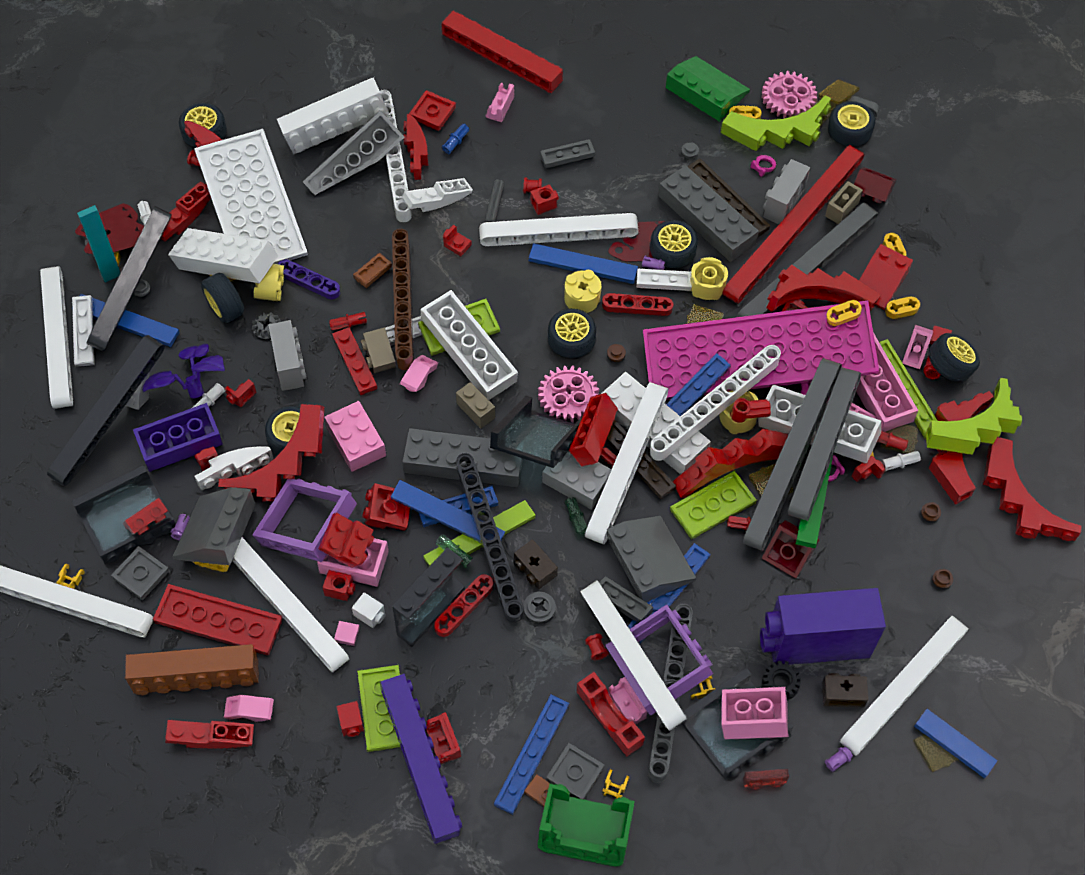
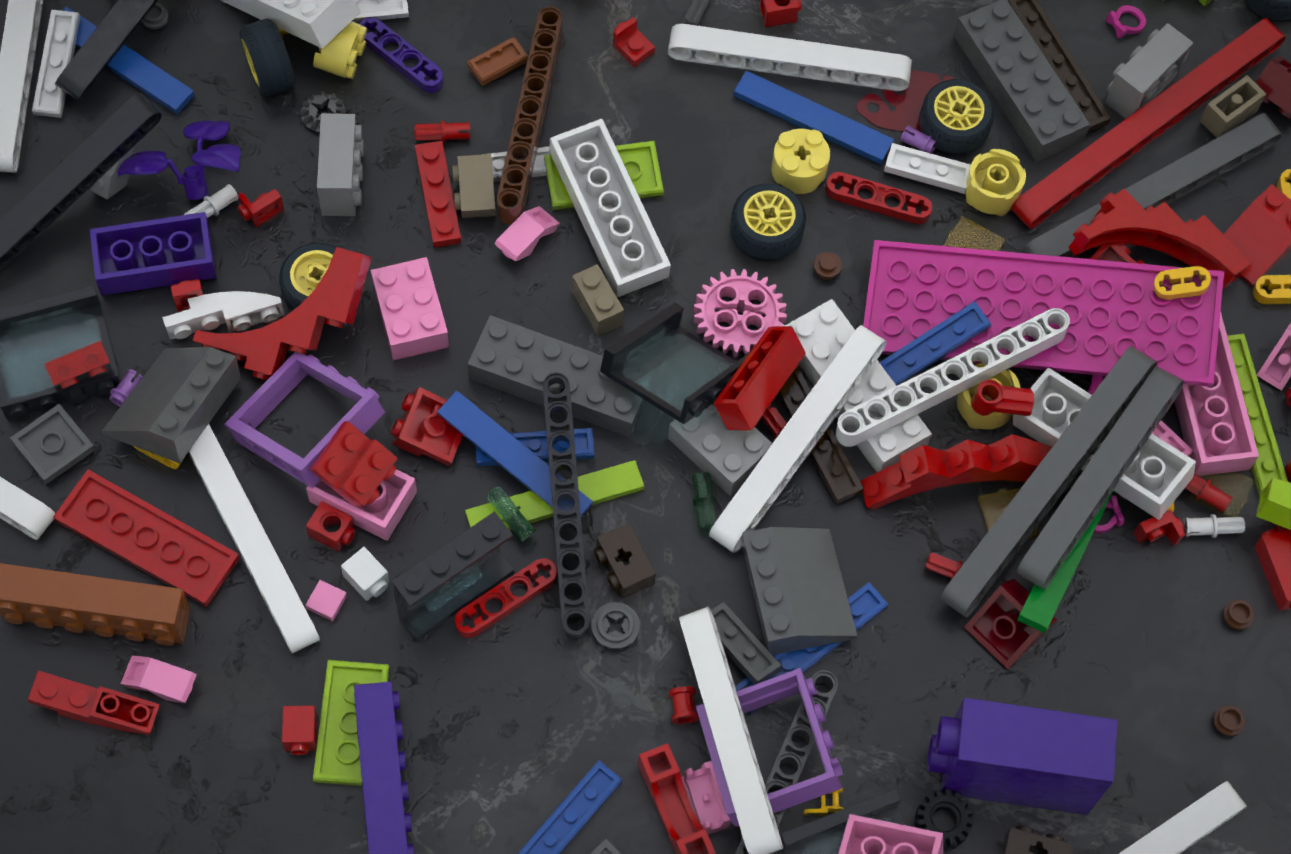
camera: 10 degrees right, 5 degrees up
(443, 738) = (425, 789): red hinge -> none
(713, 504) = (912, 529): lime tile -> none

